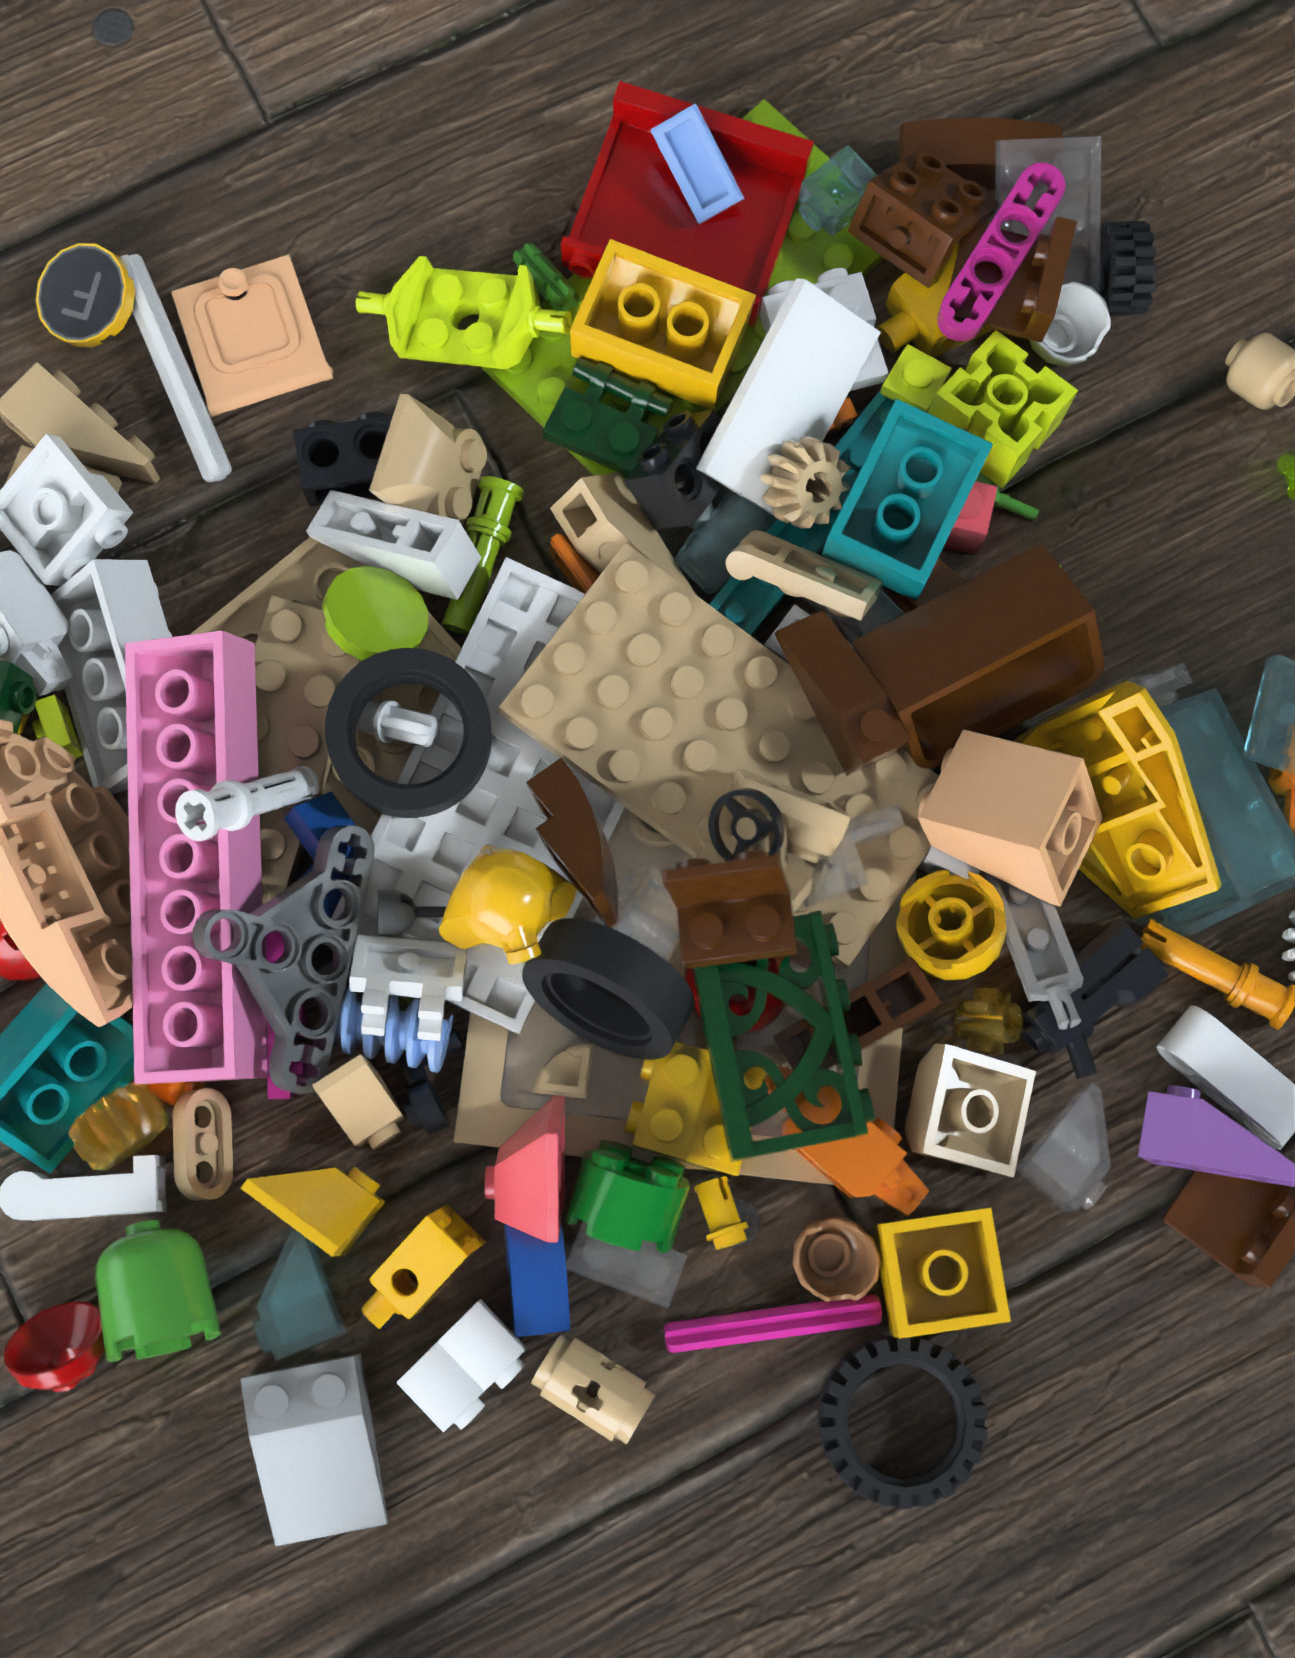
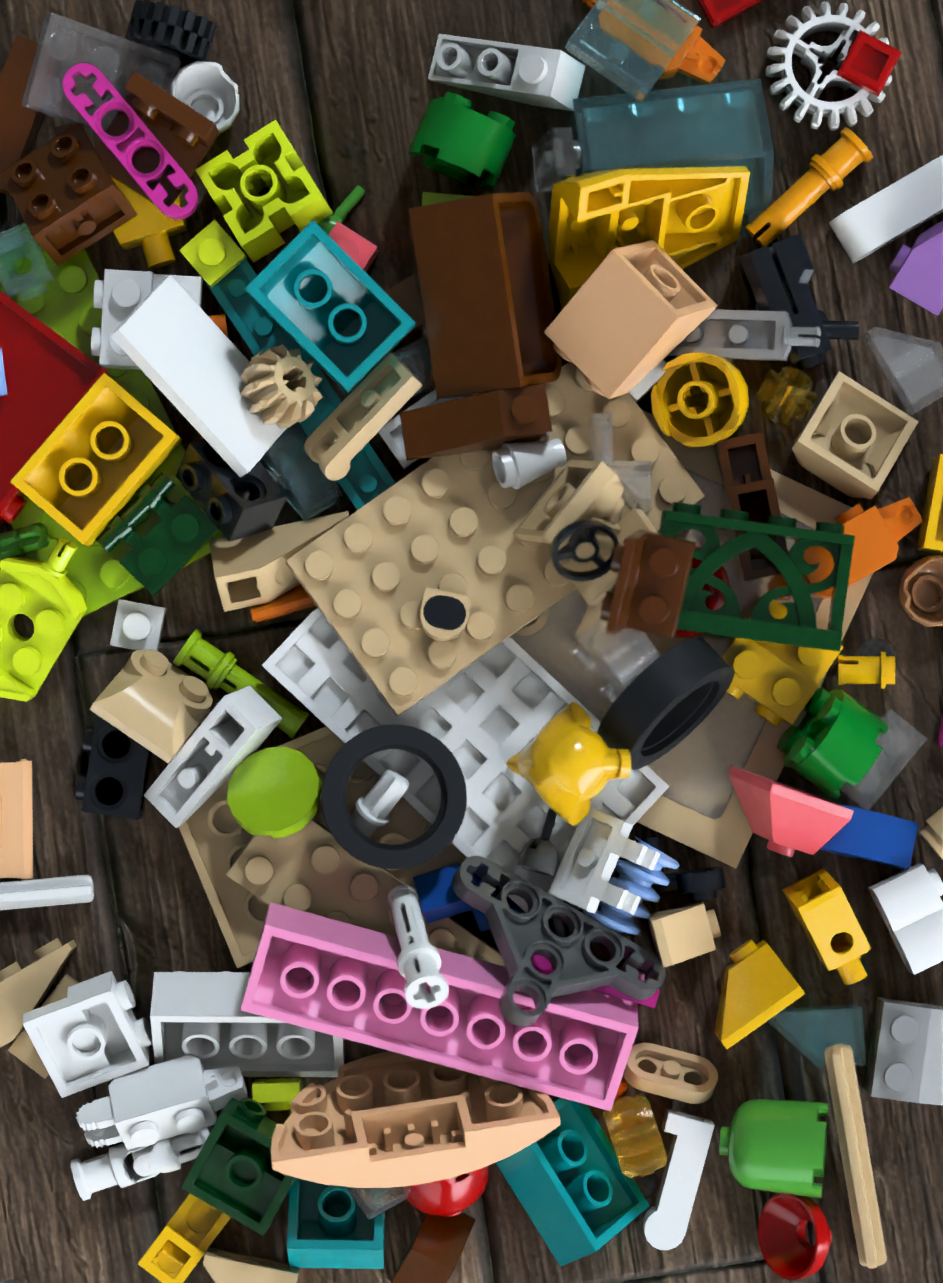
camera: 70 degrees left, 10 degrees up
(169, 1385) = (855, 1155): none -> tan axle
(507, 437) = (137, 626): none -> white plate
(567, 1073) = (712, 757): tan tile -> none
(576, 838) = (534, 687): reddish brown slope -> none
(625, 719) = (444, 613): none -> tile
(818, 755) = (526, 461): none -> white cone
(1131, 587) = (463, 141): none -> green brick
(1217, 620) = (508, 71): none -> white slope

